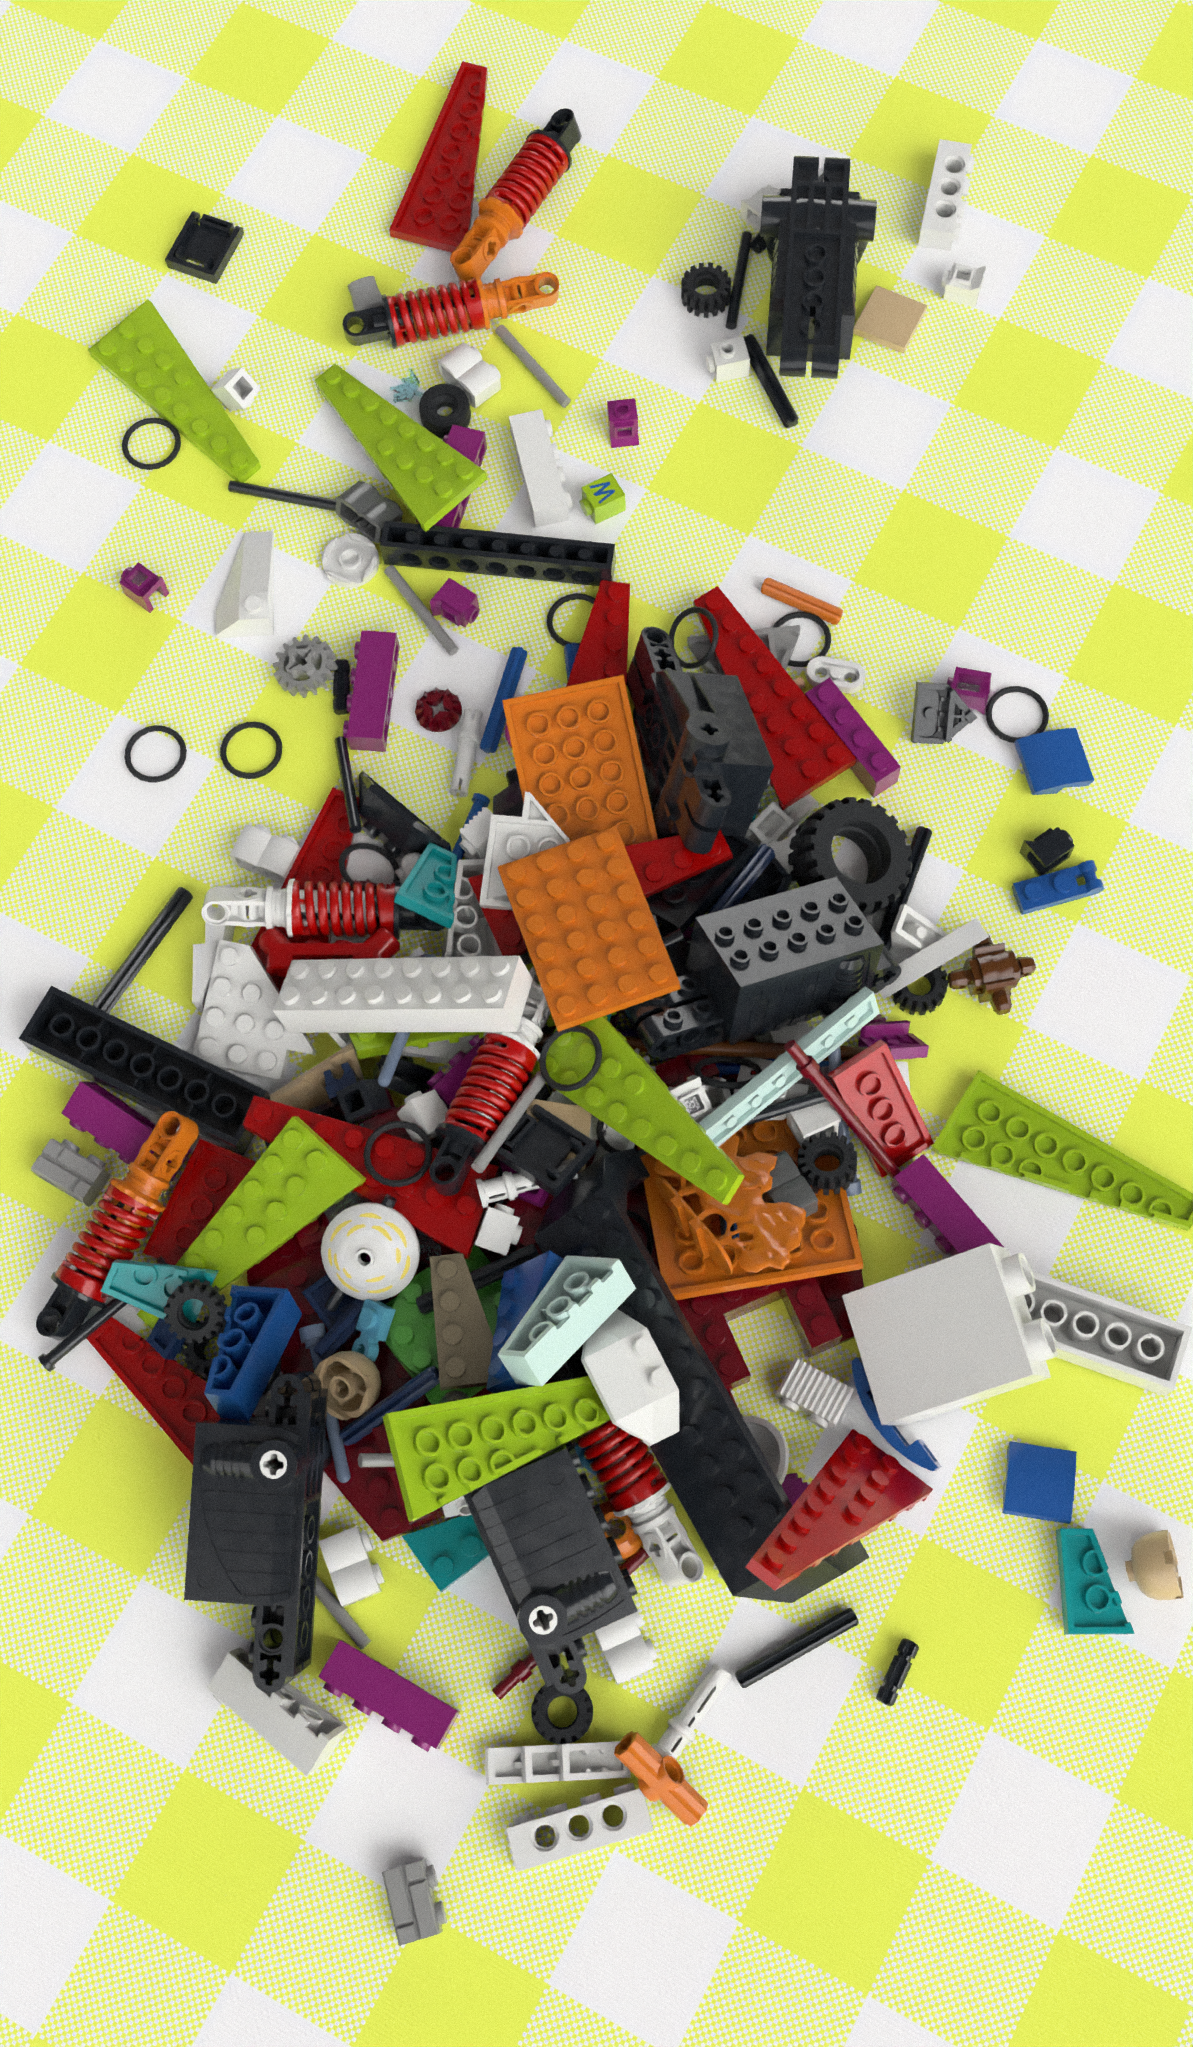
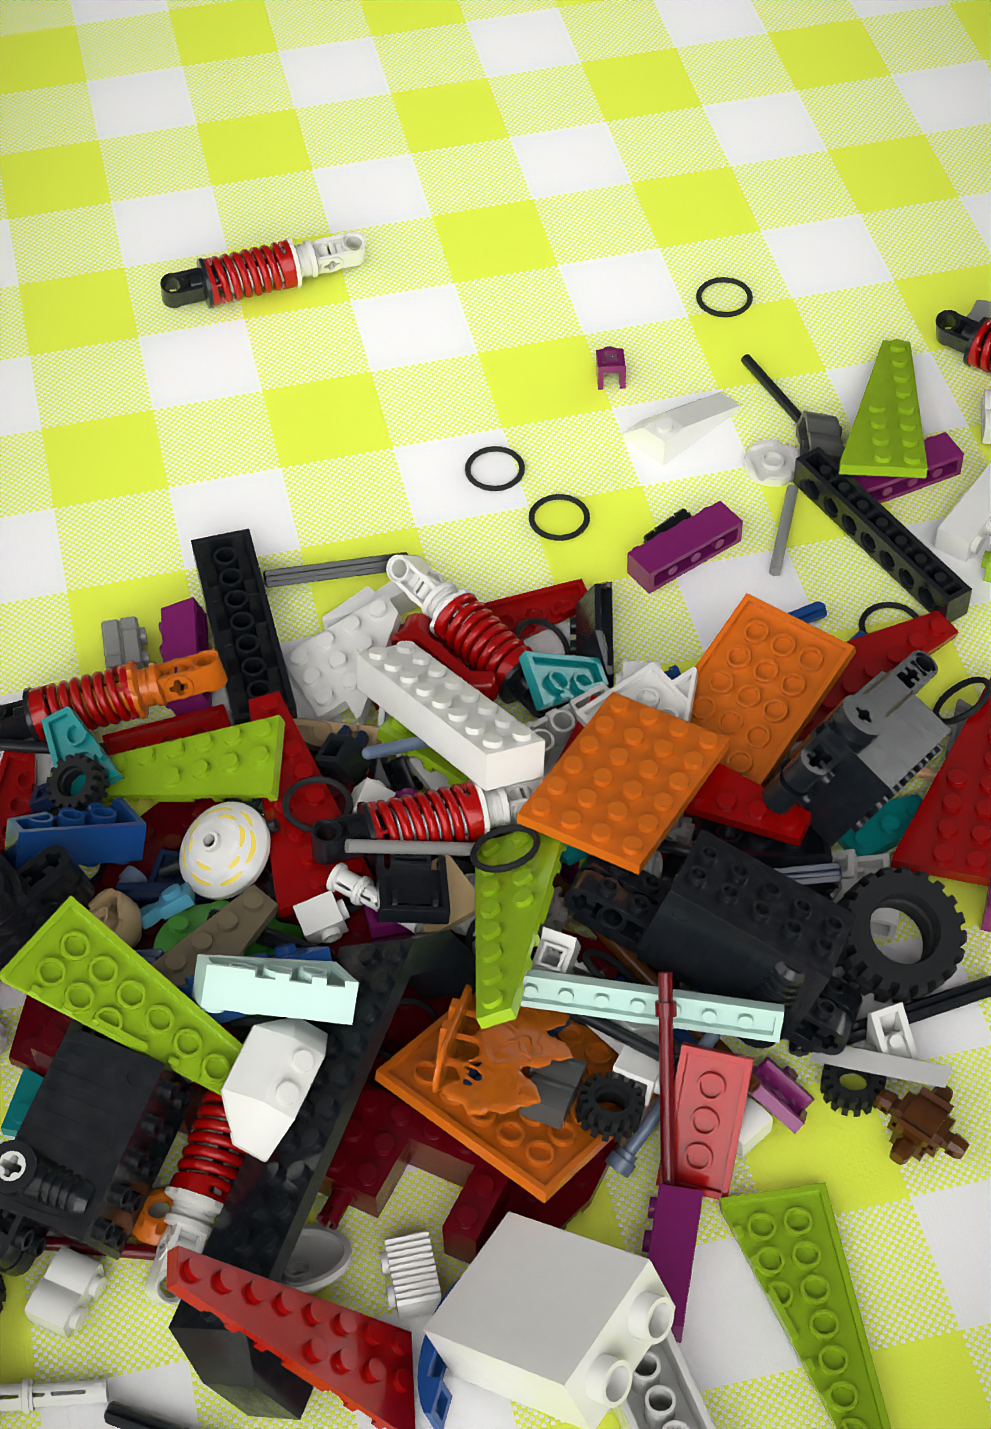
camera: 45 degrees right, 20 degrees down
(160, 373) = (781, 268): lime wing -> none
(207, 244) = (908, 215): black container -> none
(236, 389) = (818, 304): white brick -> none
(265, 853) = (486, 576): white brick -> none
(304, 666) = (656, 494): light grey gear -> none
(348, 785) = (602, 576): black bar -> none
(407, 390) = (945, 397): clear light blue piece -> none
(443, 719) = (710, 604): dark red gear -> none
(444, 396) = (960, 414): black tyre -> none
(455, 603) = (810, 541): magenta window -> none
(468, 740) = (693, 640): white pin -> none

